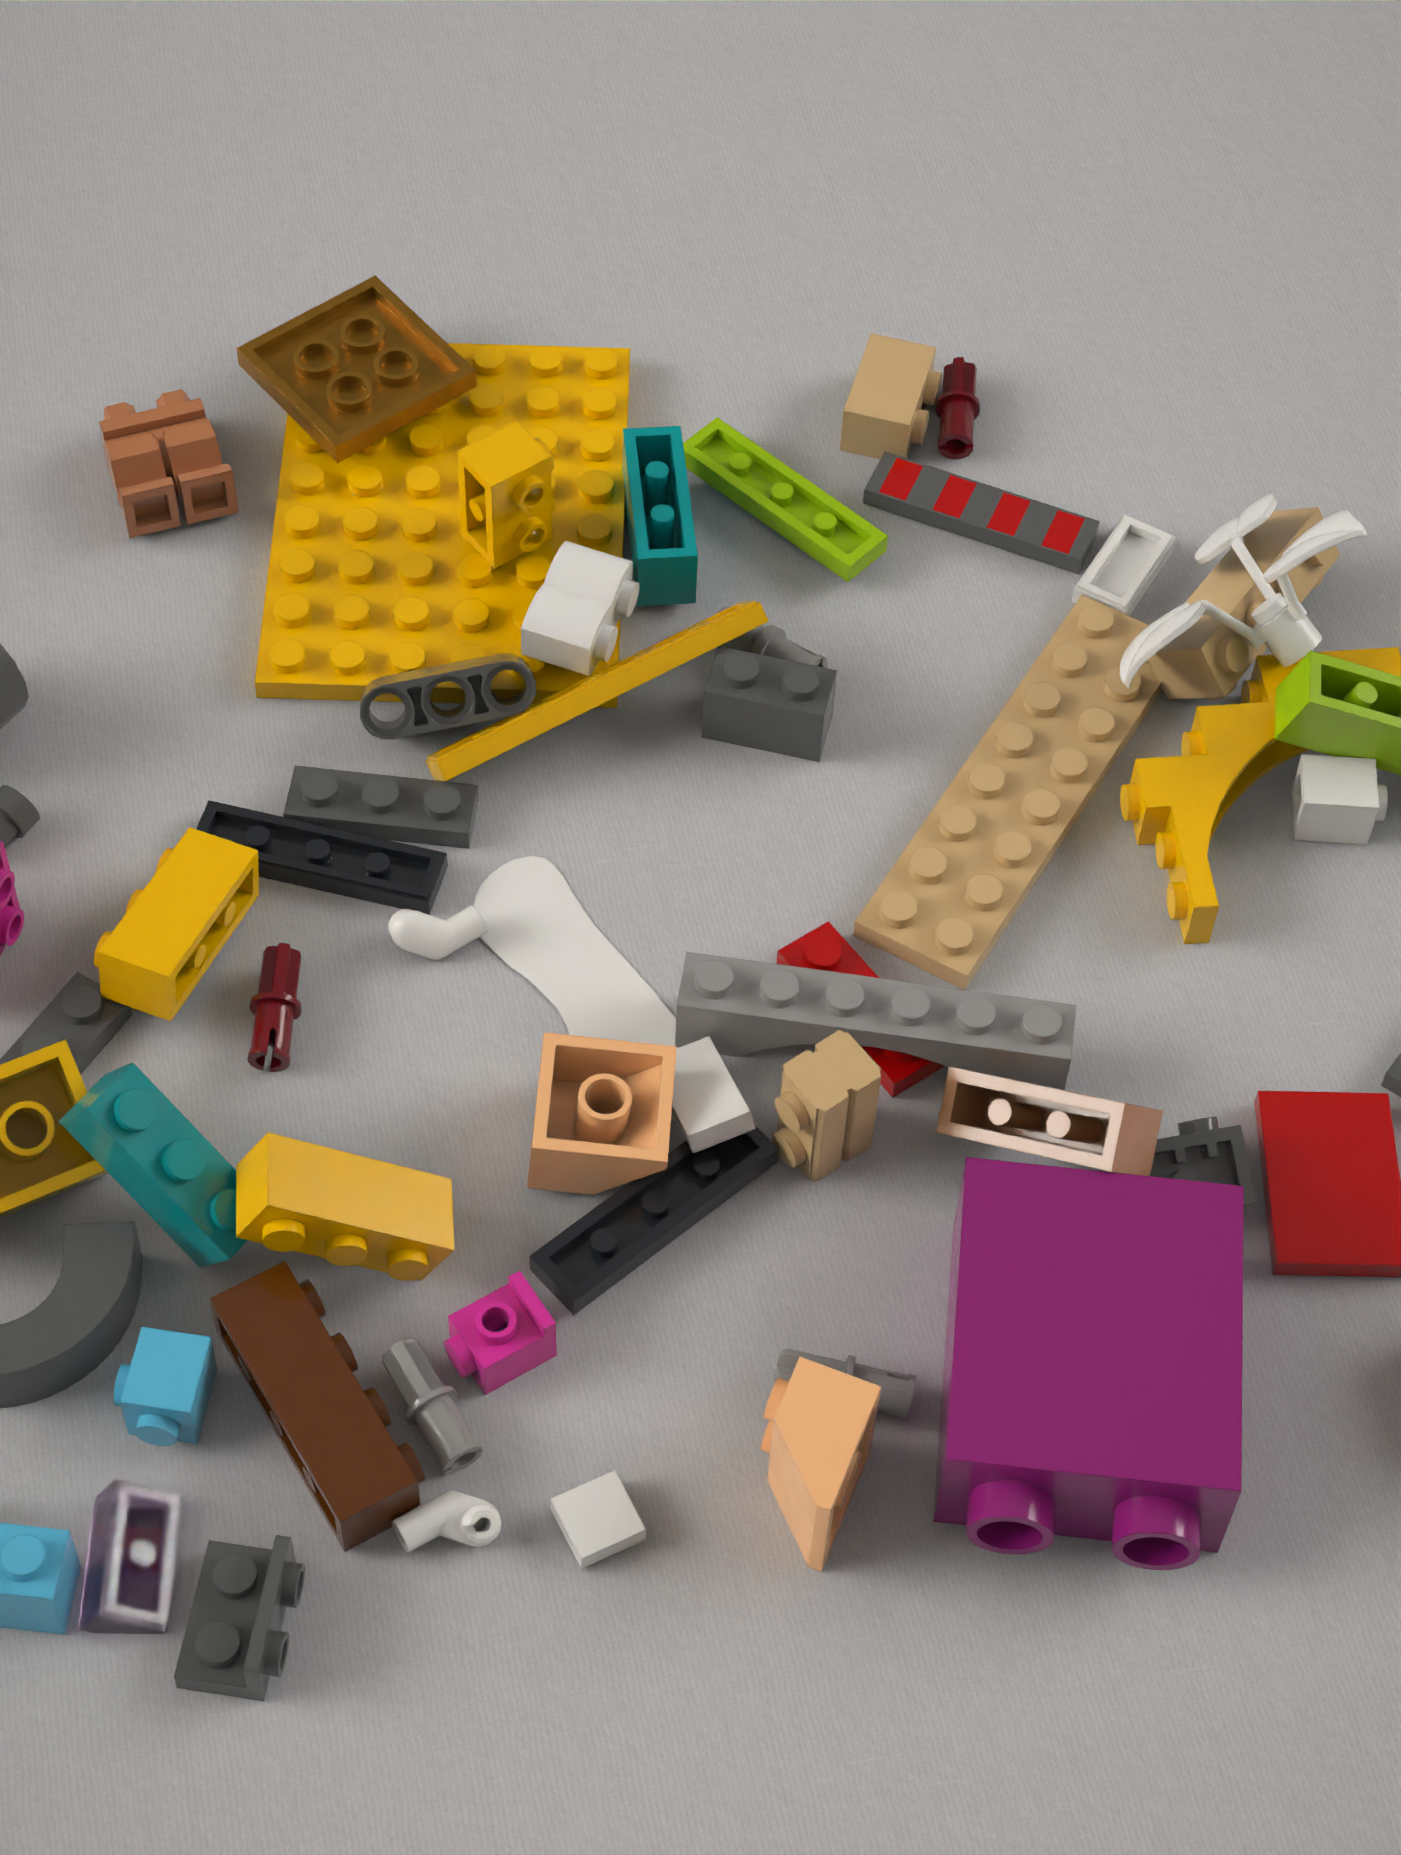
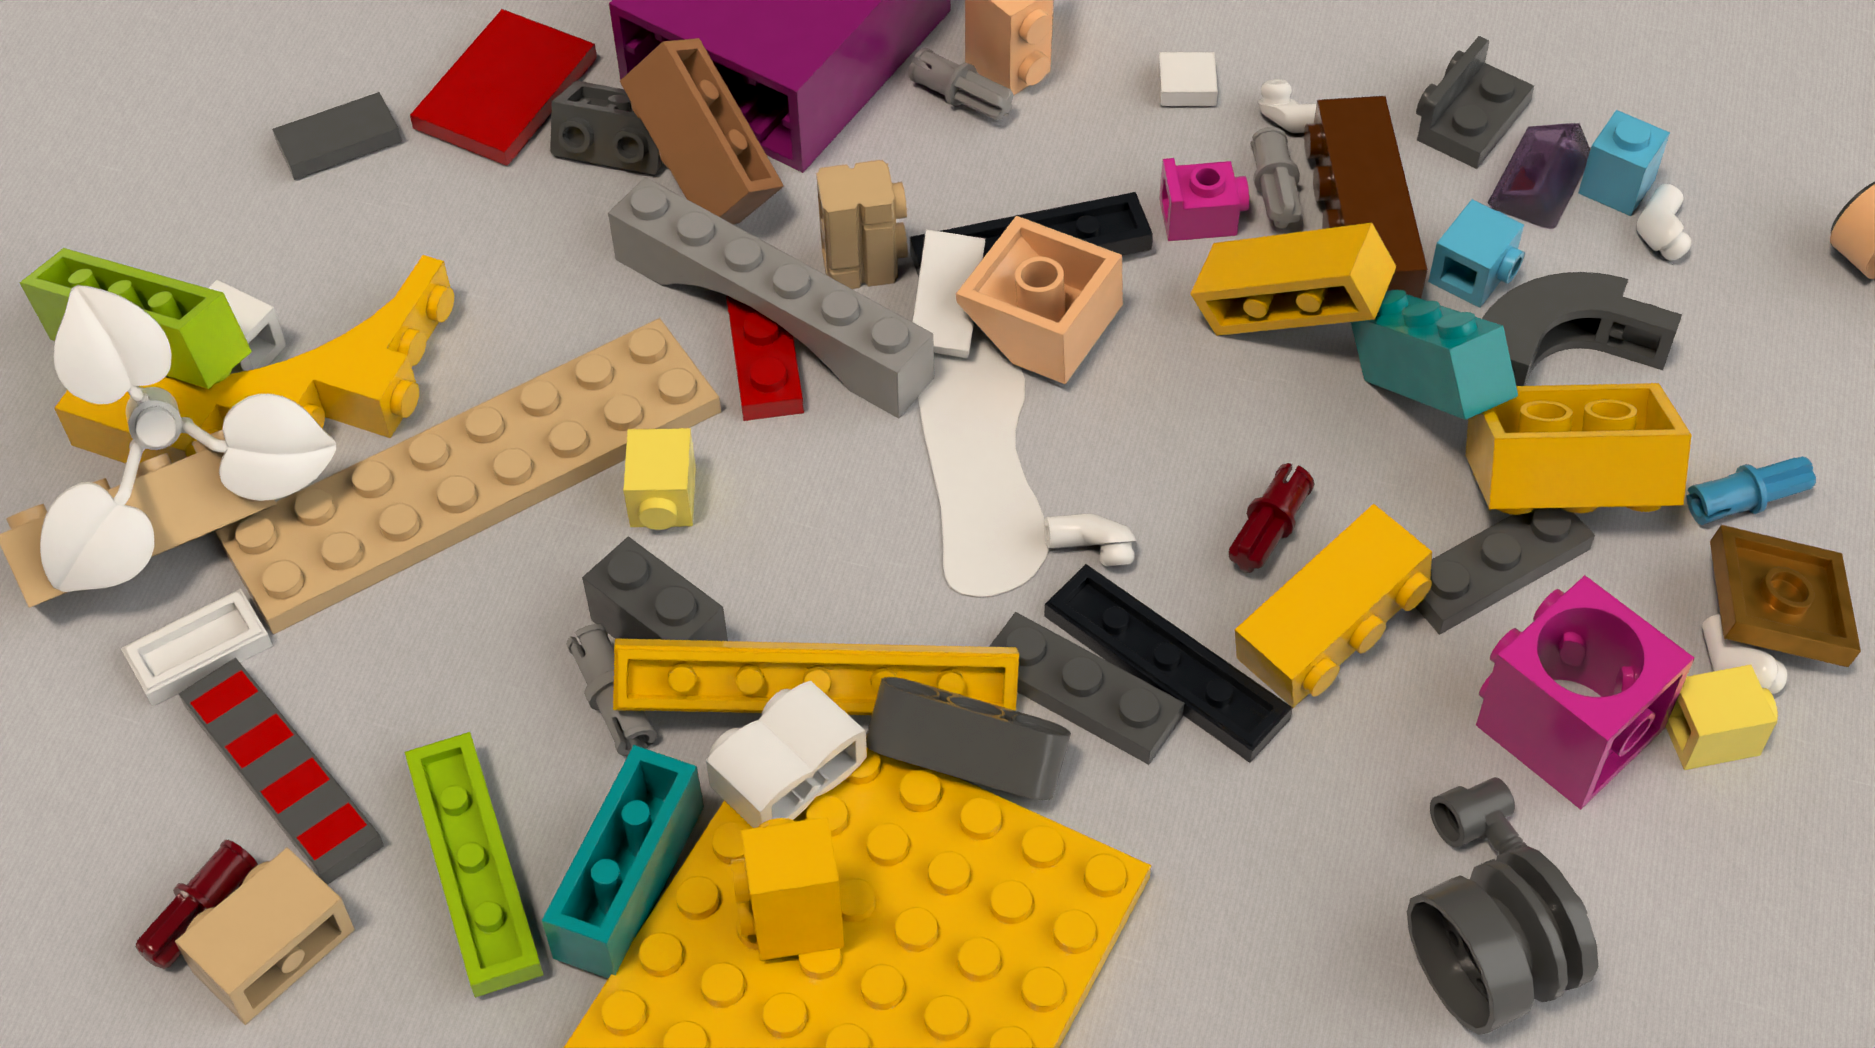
camera: 150 degrees left, 0 degrees up
(851, 820) = (659, 478): none -> light yellow brick

